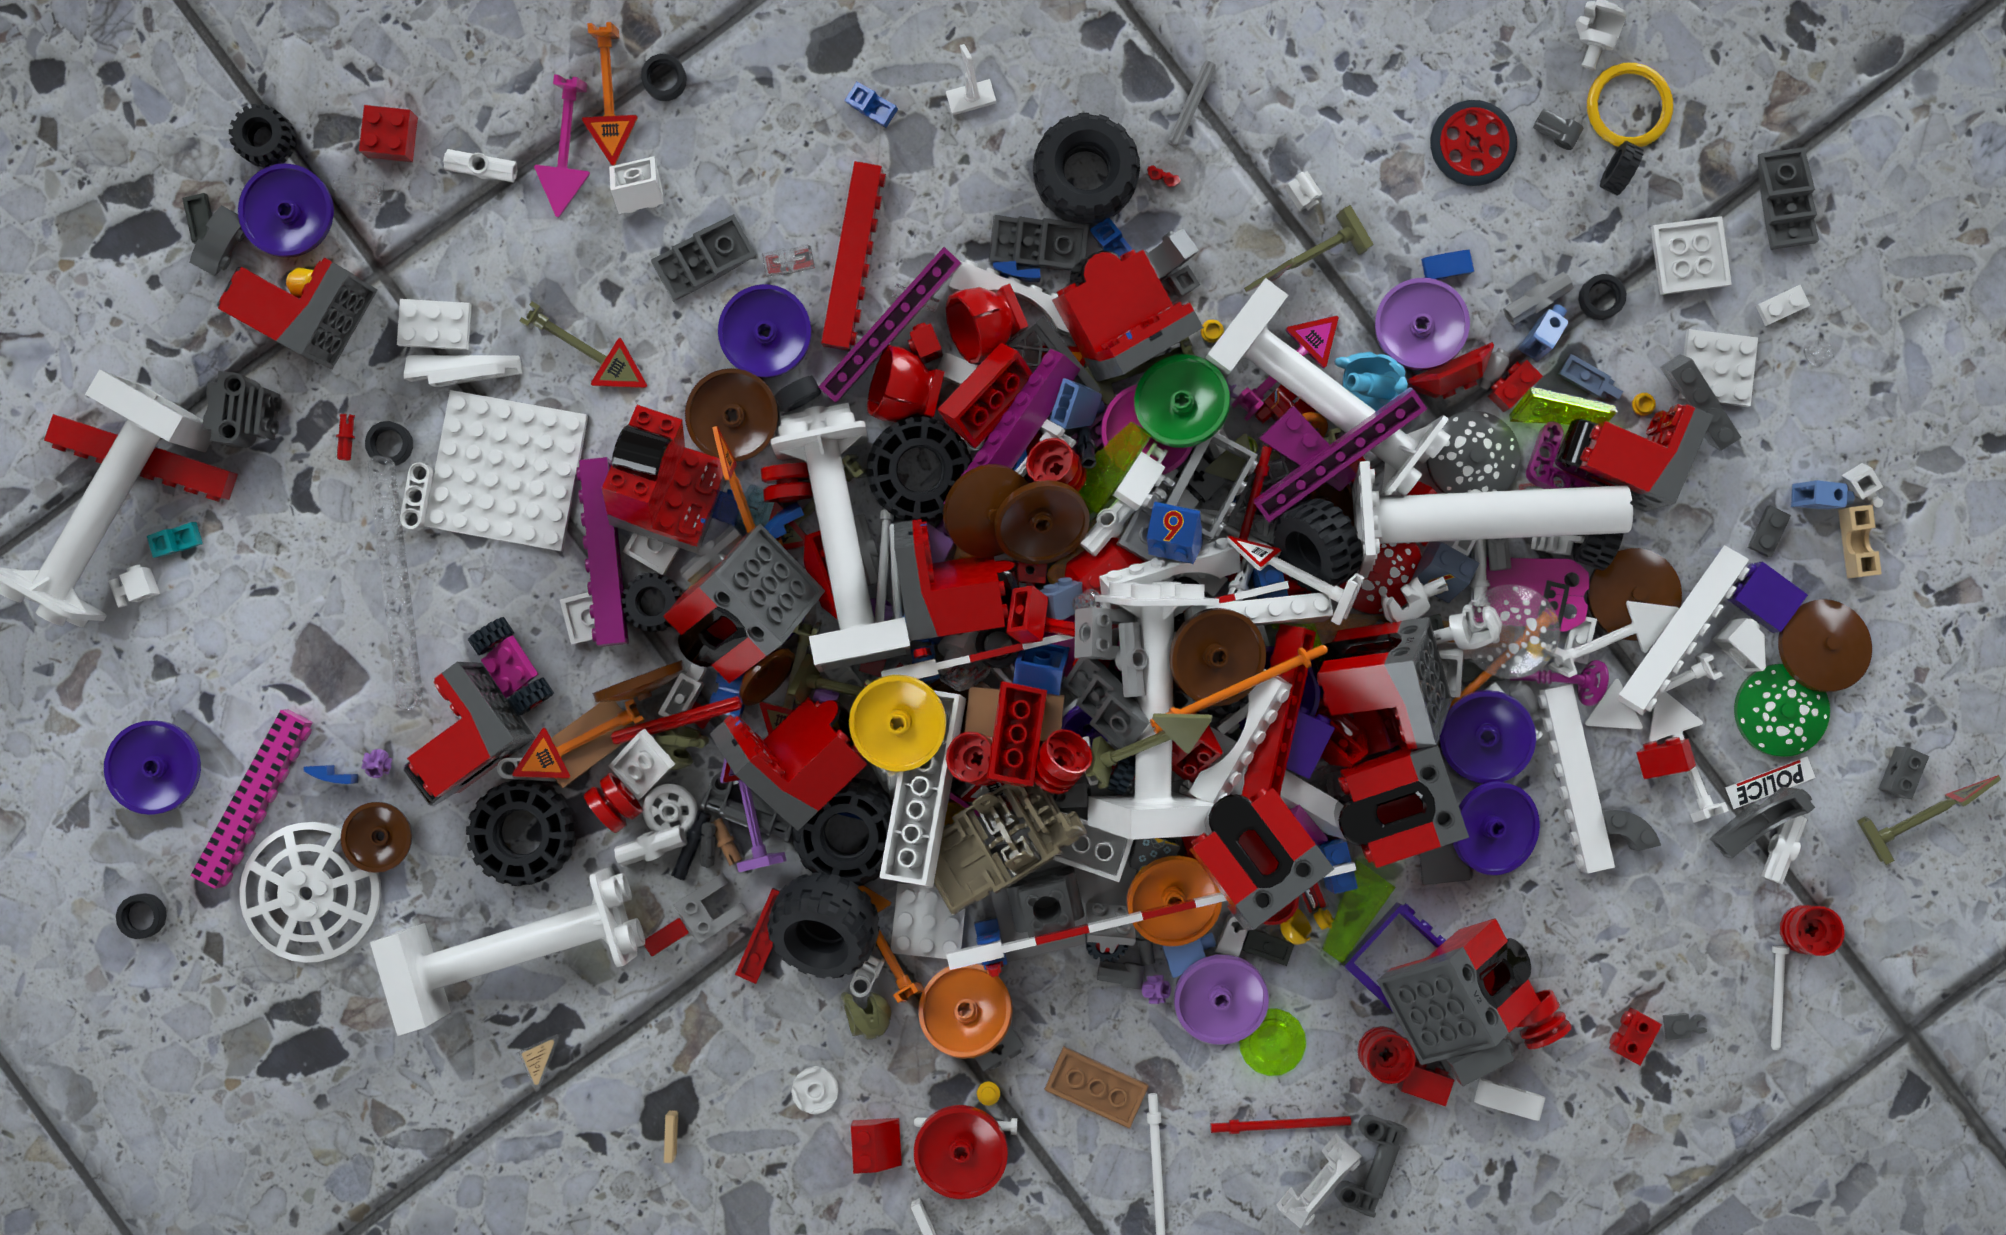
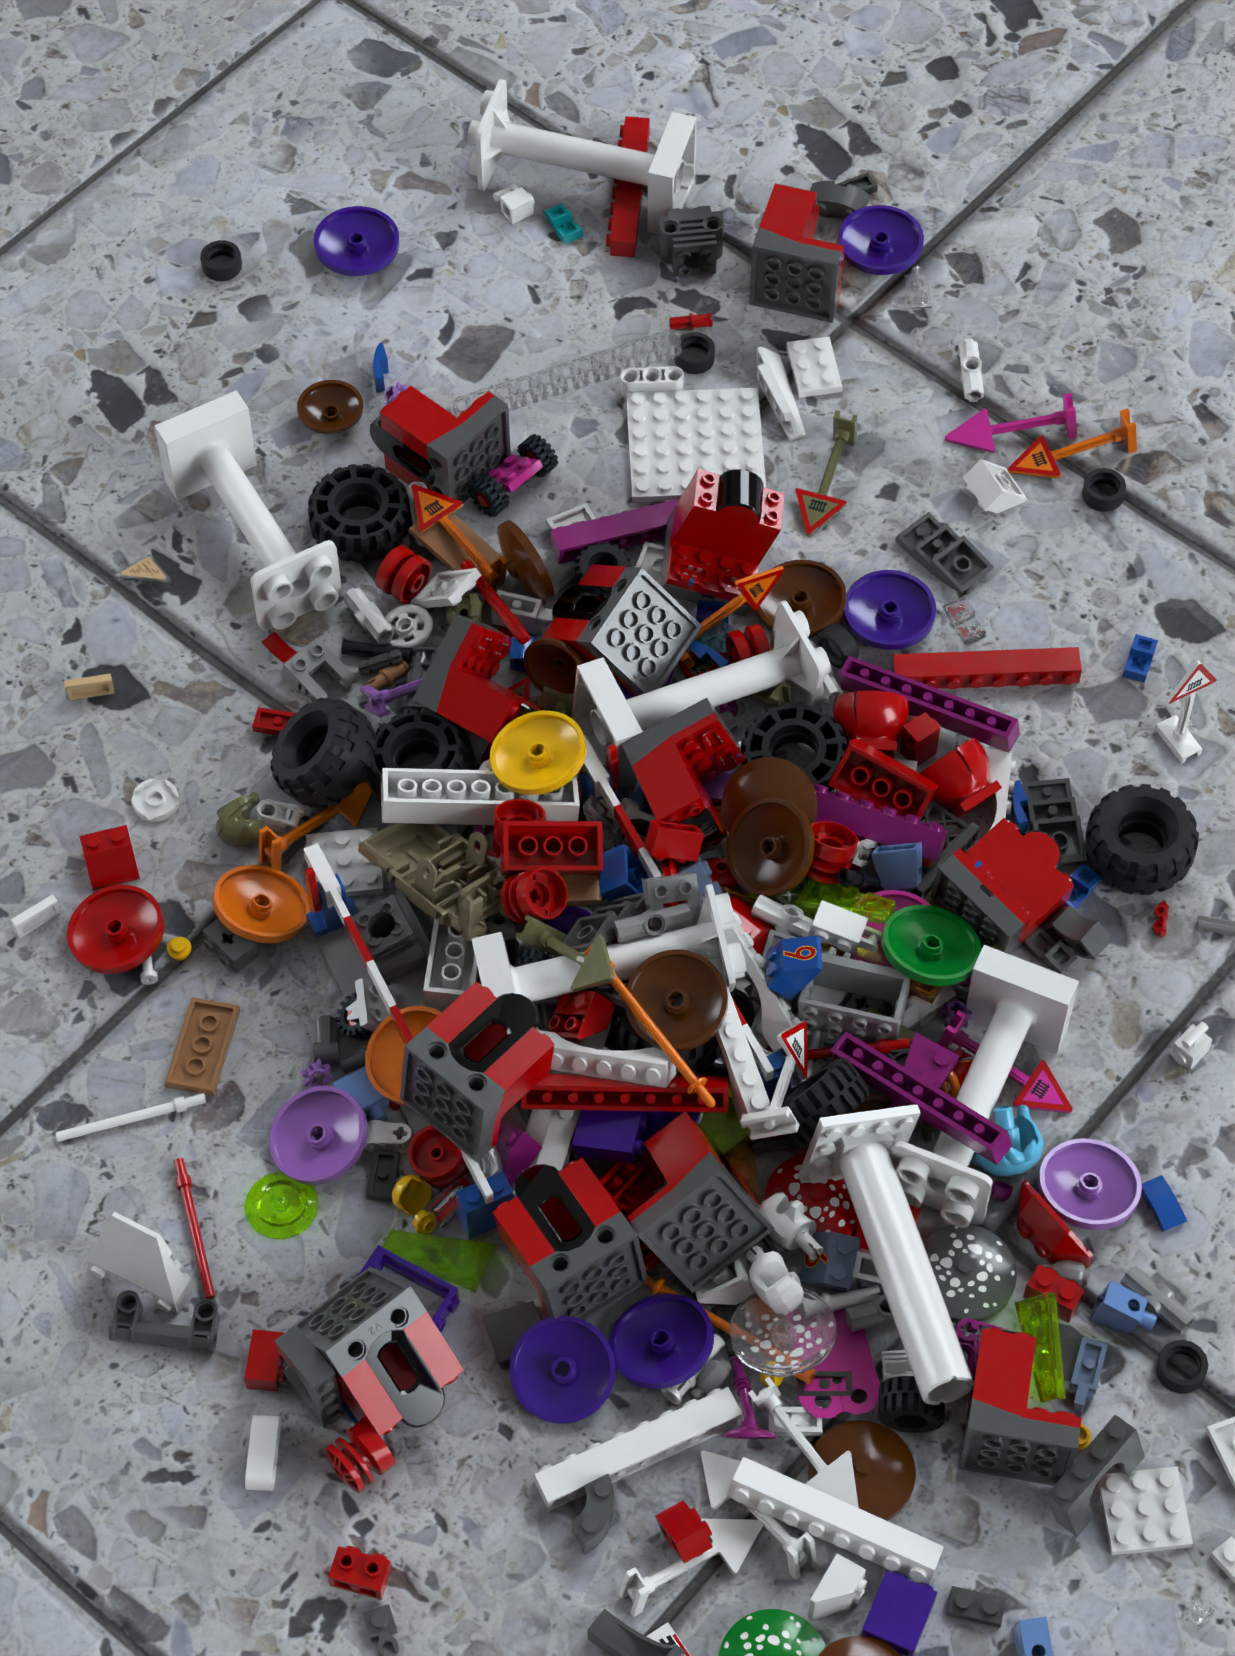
camera: 80 degrees right, 30 degrees down
(247, 125) = (942, 212): black tyre -> none
(251, 799) = (344, 316): dark pink brick -> none
(322, 899) = (271, 381): white dish -> none
(388, 133) = (976, 299): red brick -> none
(1352, 231) = (1096, 1031): olive piece -> none
(1395, 1063) = (283, 1293): red wheel -> none

